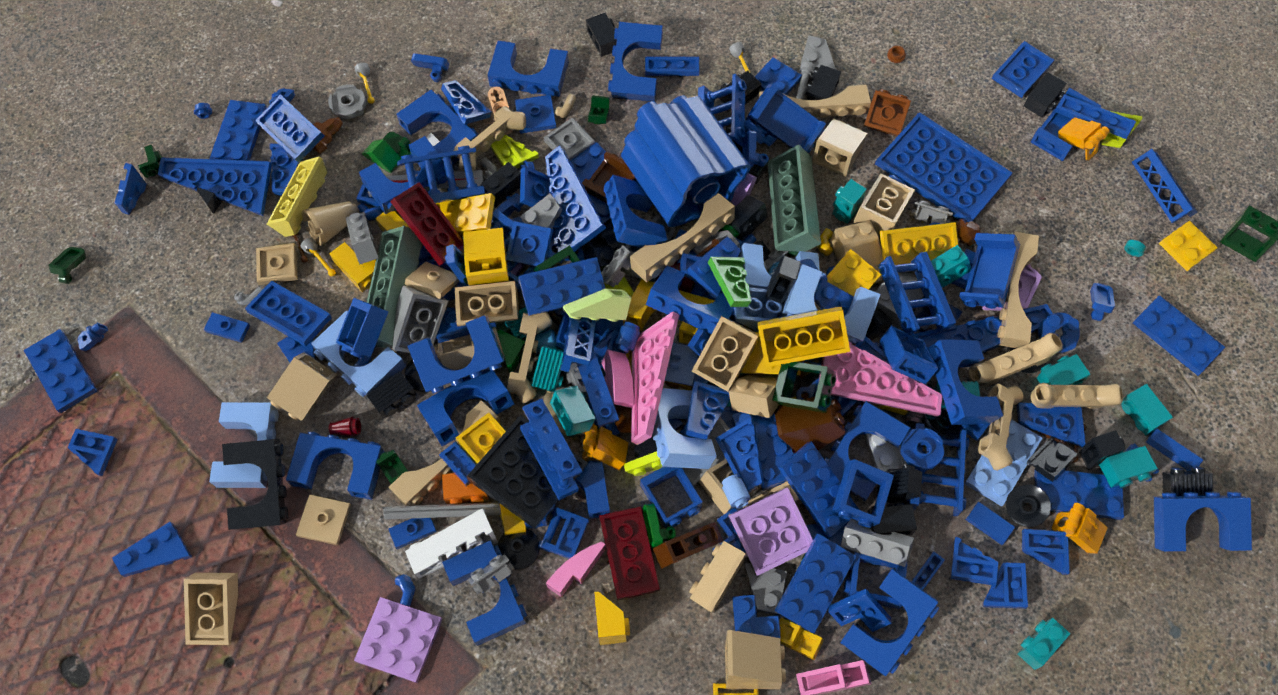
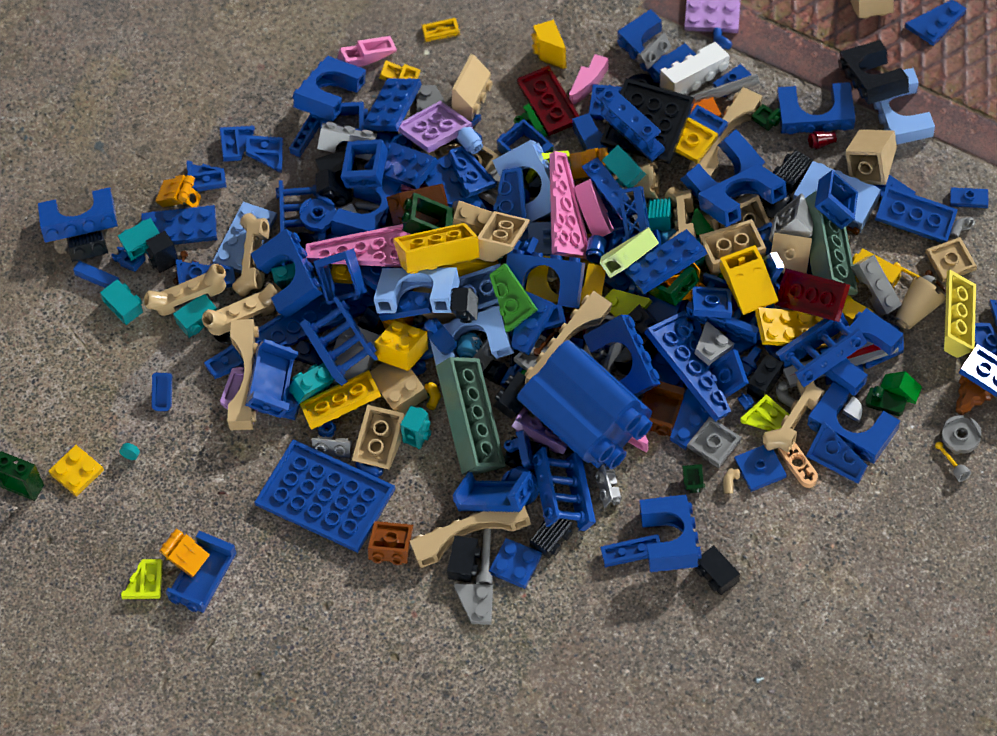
camera: 170 degrees right, 5 degrees down
(323, 520) = (809, 72): tan plate -> none
(437, 65) = (891, 494): blue piece -> none
(546, 82) = (807, 497): blue arch -> none
(611, 273) = (624, 305): light grey hinge -> none
(687, 544) = (501, 113): reddish brown slope -> none
(737, 50) = (564, 585): light grey hinge -> none
(747, 621) = (438, 71): blue plate -> none
(753, 661) = (431, 43): tan slope -> none
(839, 147) = (434, 489): tan slope -> none
(861, 606) = (352, 96): blue plate -> none
(896, 54) = (390, 621): dark orange plate -> none
(966, 231) = (293, 429): reddish brown rock -> none
(990, 523) = (253, 187): blue tile -> none
(1022, 69) = (249, 630): blue plate -> none
(1028, 495) = (222, 196): black dish -> none
(1043, 643) = (205, 107): teal brick -> none
(1045, 94) = (224, 601): black brick -> none
(1052, 459) = (204, 242): black plate -> none
(1068, 325) = (207, 345): blue plate -> none
(1076, 108) = (172, 578): blue plate -> none
(1172, 185) = (94, 526): blue fence -> none
(1178, 335) = (89, 380): blue plate -> none

